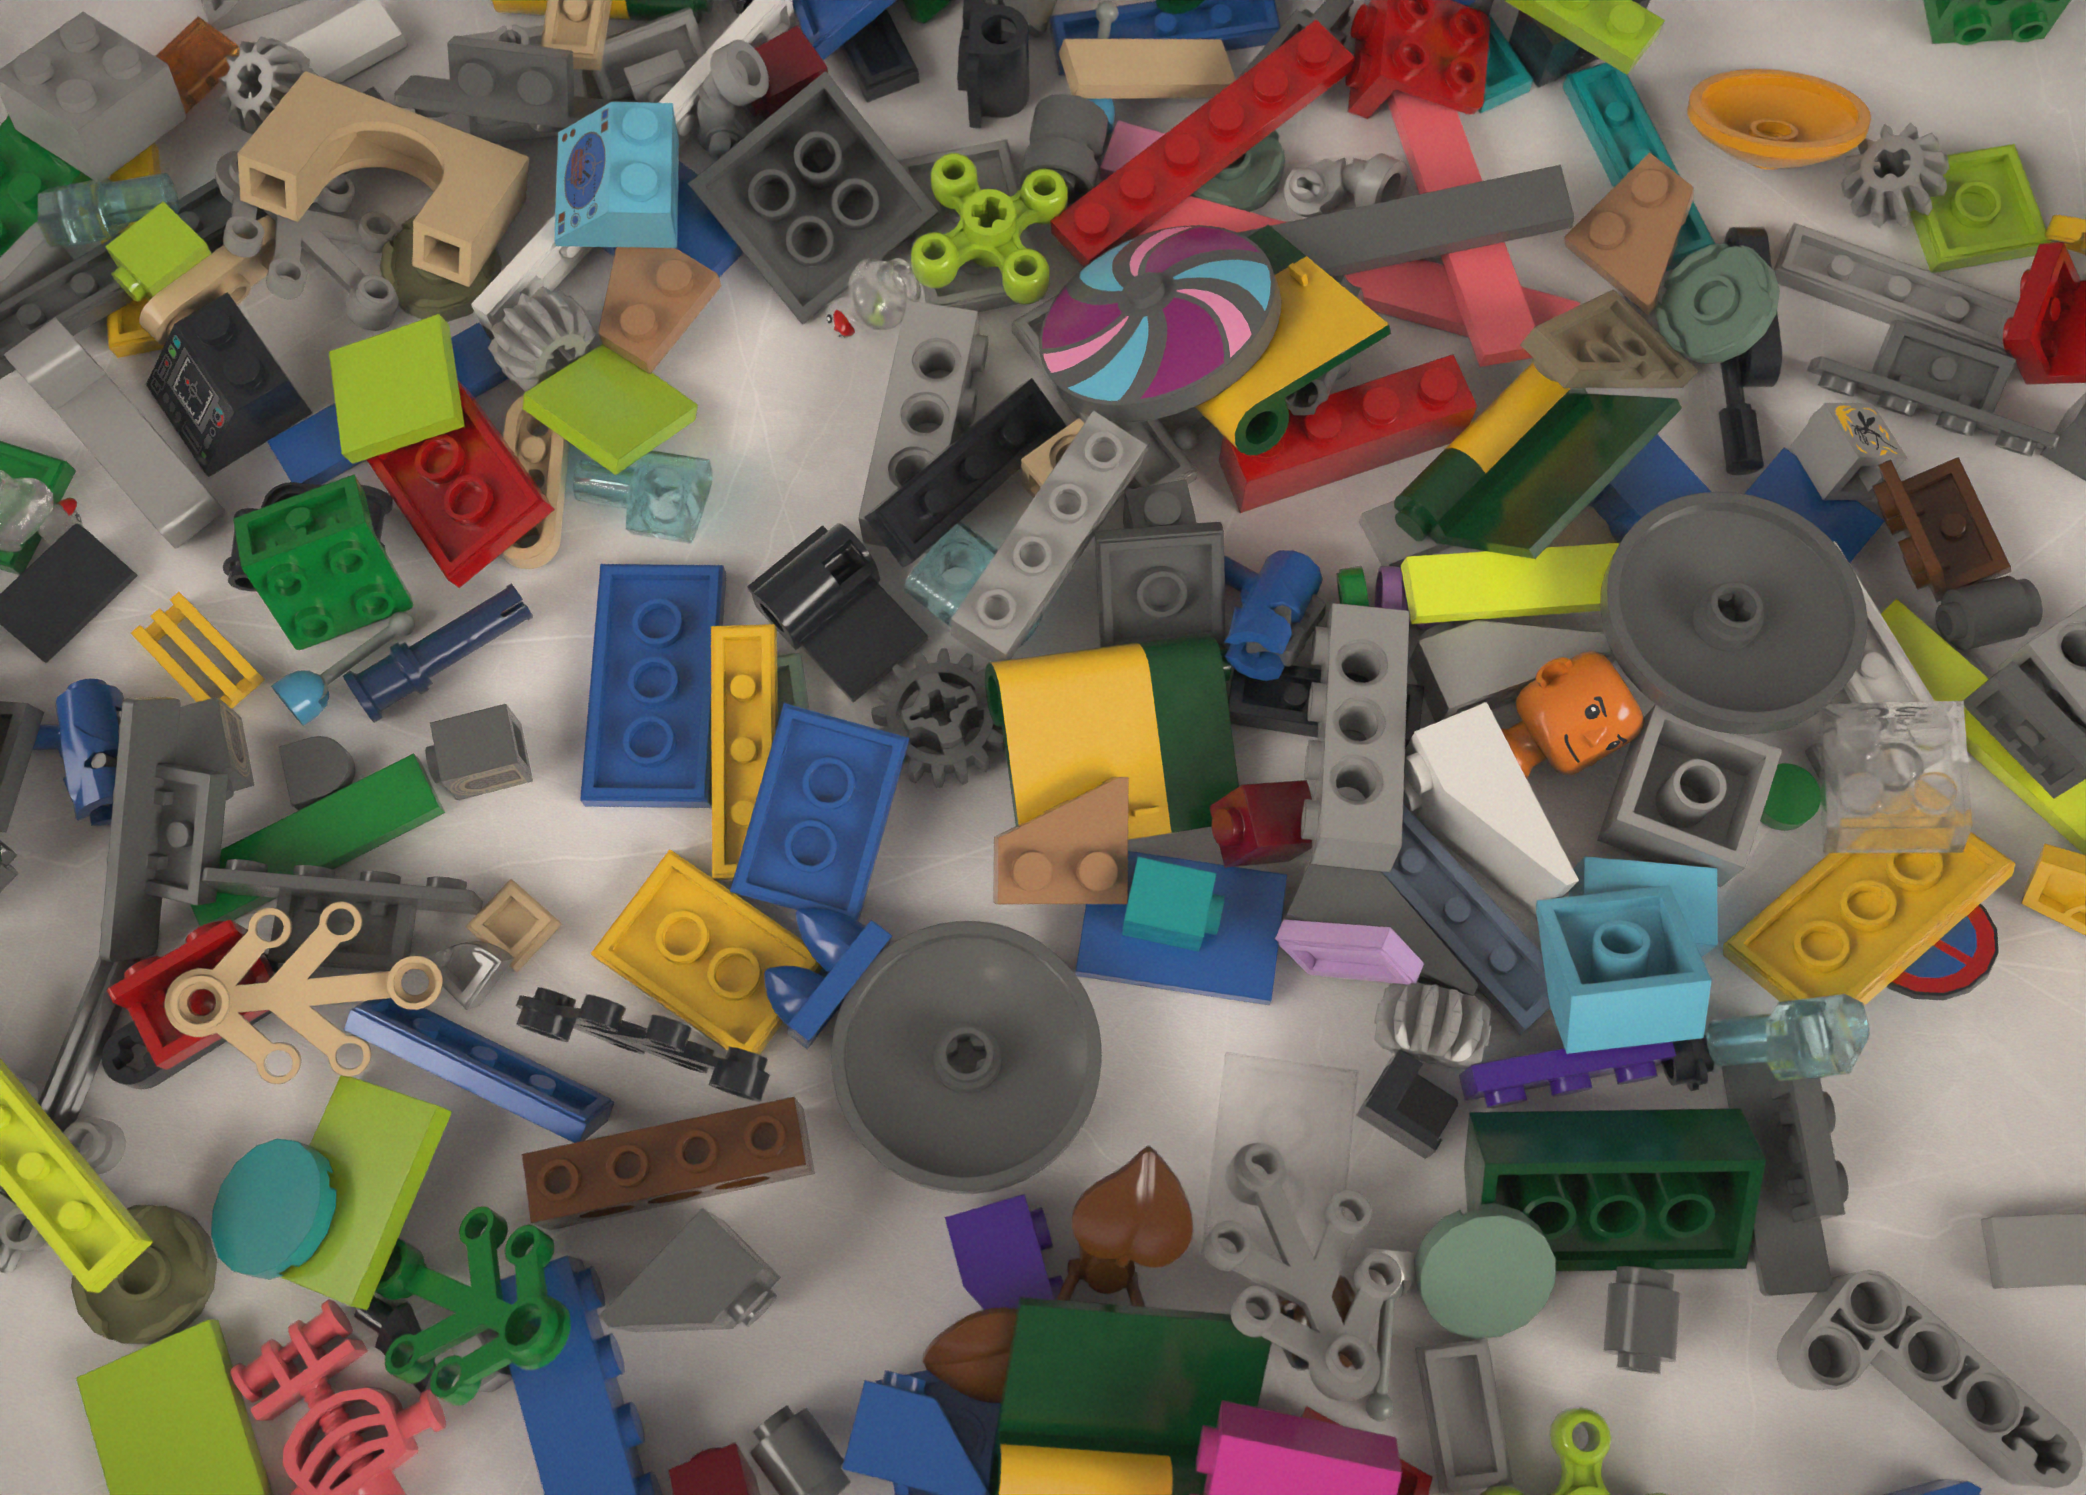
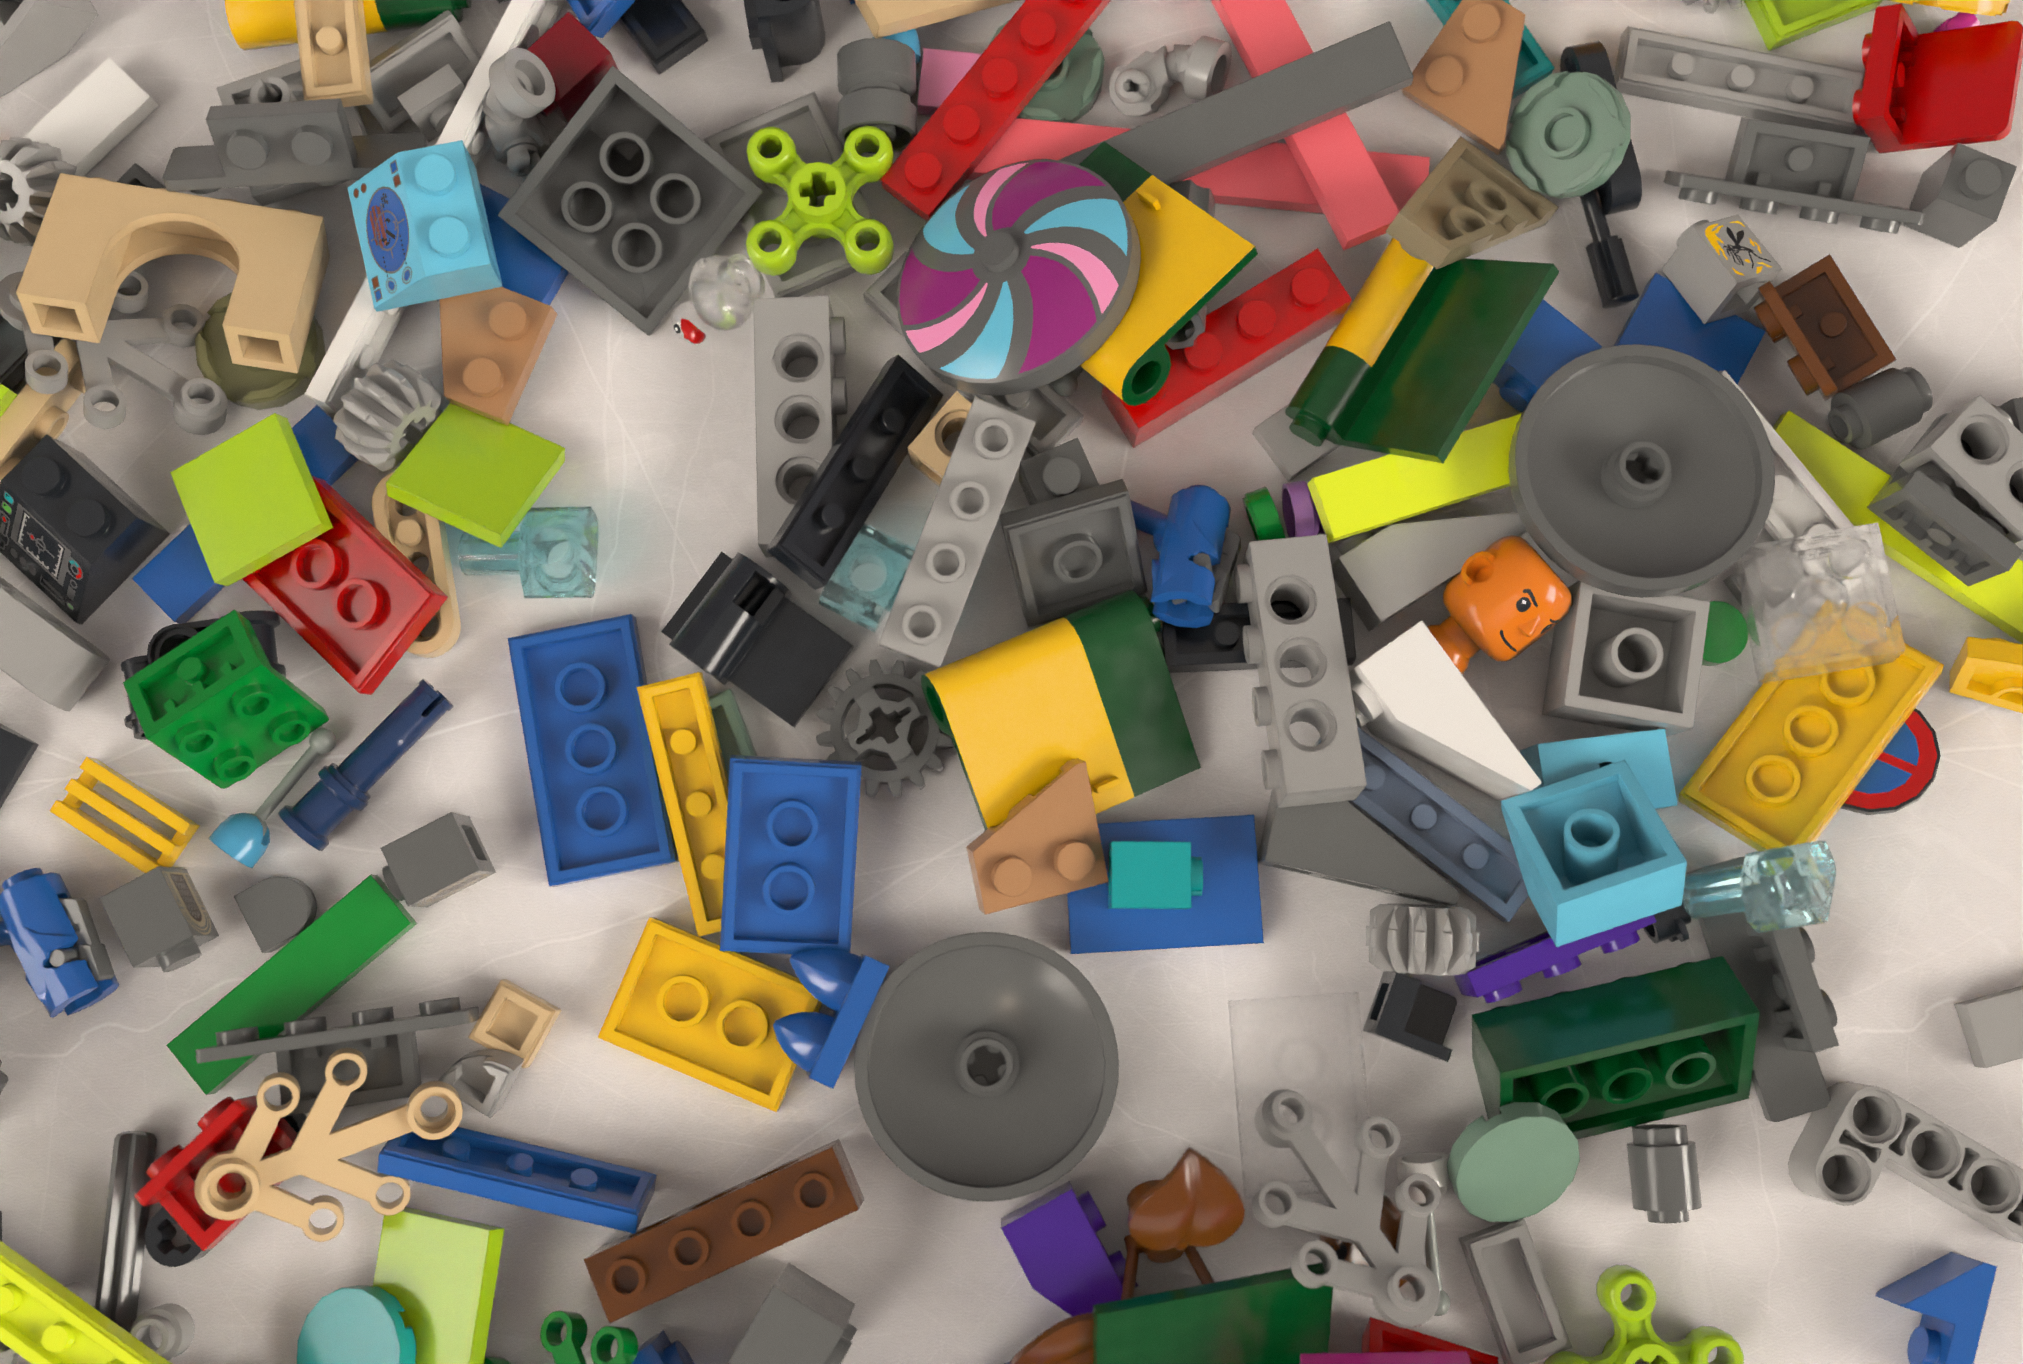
camera: 15 degrees left, 10 degrees up
(161, 829) = (140, 1015): dark grey bracket -> none
(555, 1017) = (580, 1121): black plant -> none
(1261, 823) = (1220, 772): dark red brick -> none
(1350, 951) = (1332, 888): lavender tile -> none

